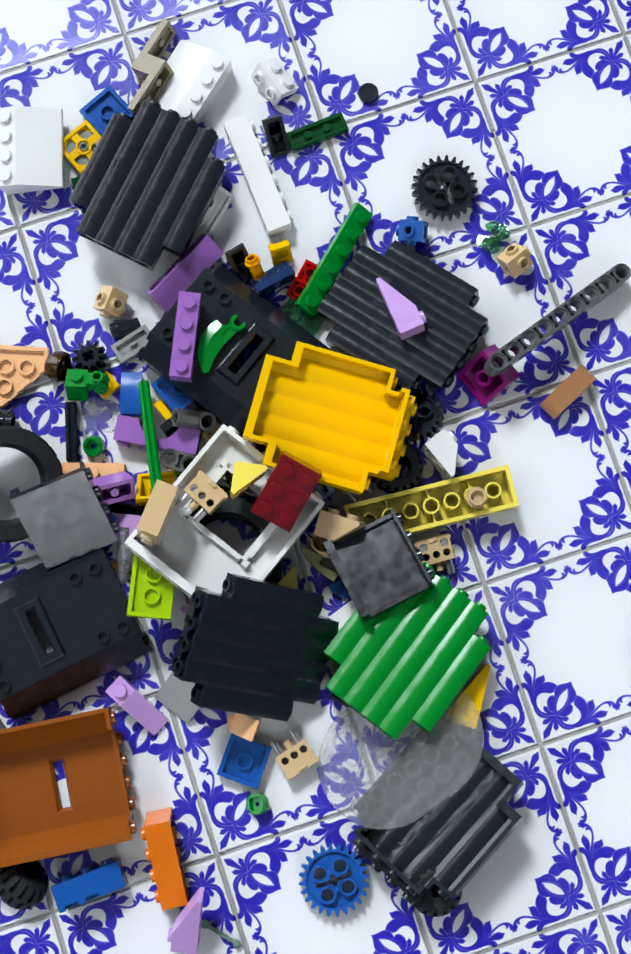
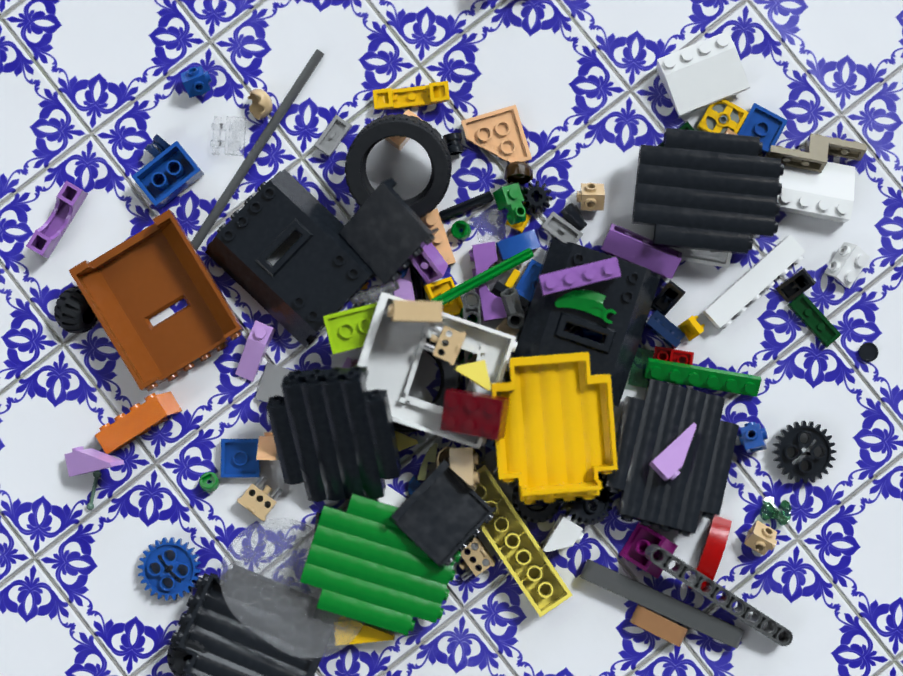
camera: 70 degrees right, 5 degrees up
(89, 884) = (95, 366): blue wedge -> none
(253, 263) = (671, 307): light orange pin -> none
(476, 497) = (533, 578): tan plate -> none
(508, 309) = (713, 548): none -> red slope
(546, 381) = (662, 603): none -> dark grey beam

